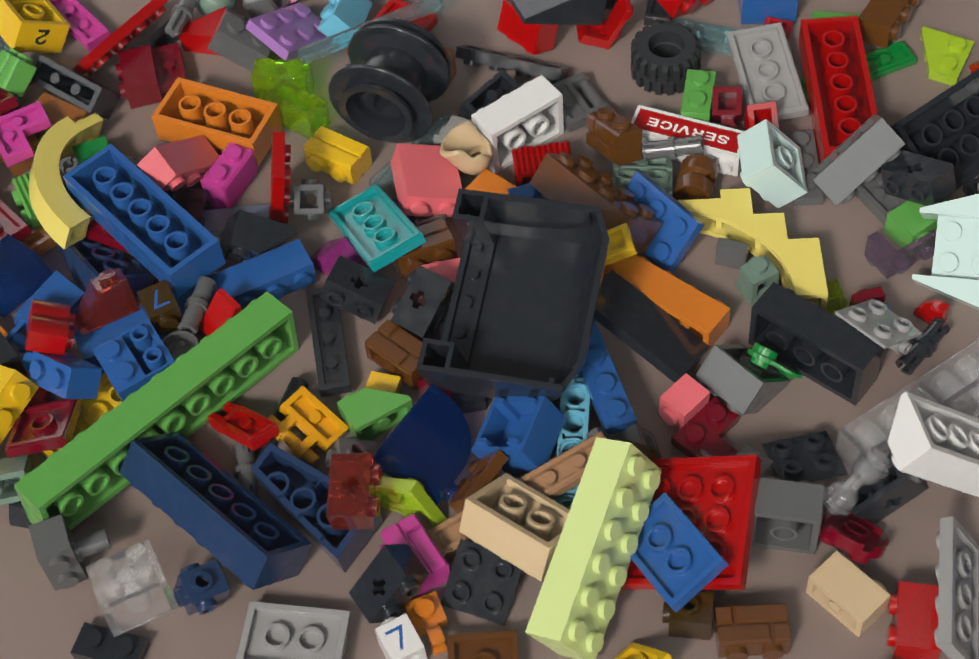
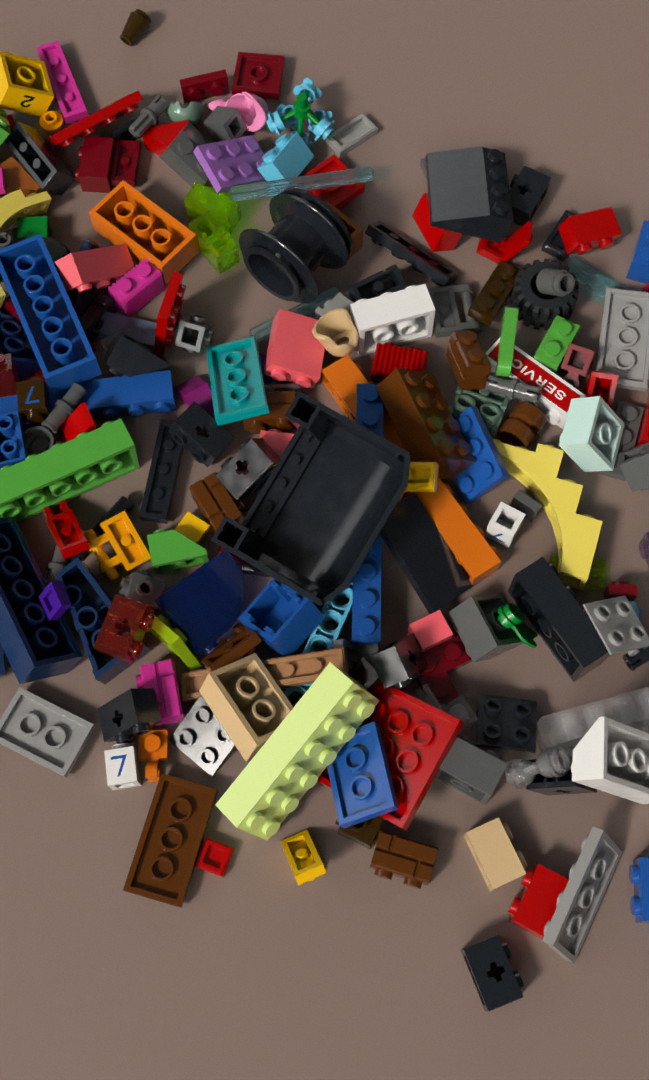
camera: 15 degrees right, 15 degrees up
(72, 53) = (51, 122): none -> light orange plate
(261, 491) = (54, 600): none -> dark purple plate
(337, 155) = (232, 297): yellow brick -> none
(613, 72) = (494, 293): none -> dark brown plate
(648, 105) = (507, 341): none -> bright green beam
(665, 431) = (399, 662): none -> black brick
(674, 37) = (555, 282): none -> dark grey brick
(719, 275) = (504, 524): none -> white brick
(754, 273) = (536, 539): sand green brick -> none
(854, 535) = (517, 819): dark red plate -> none

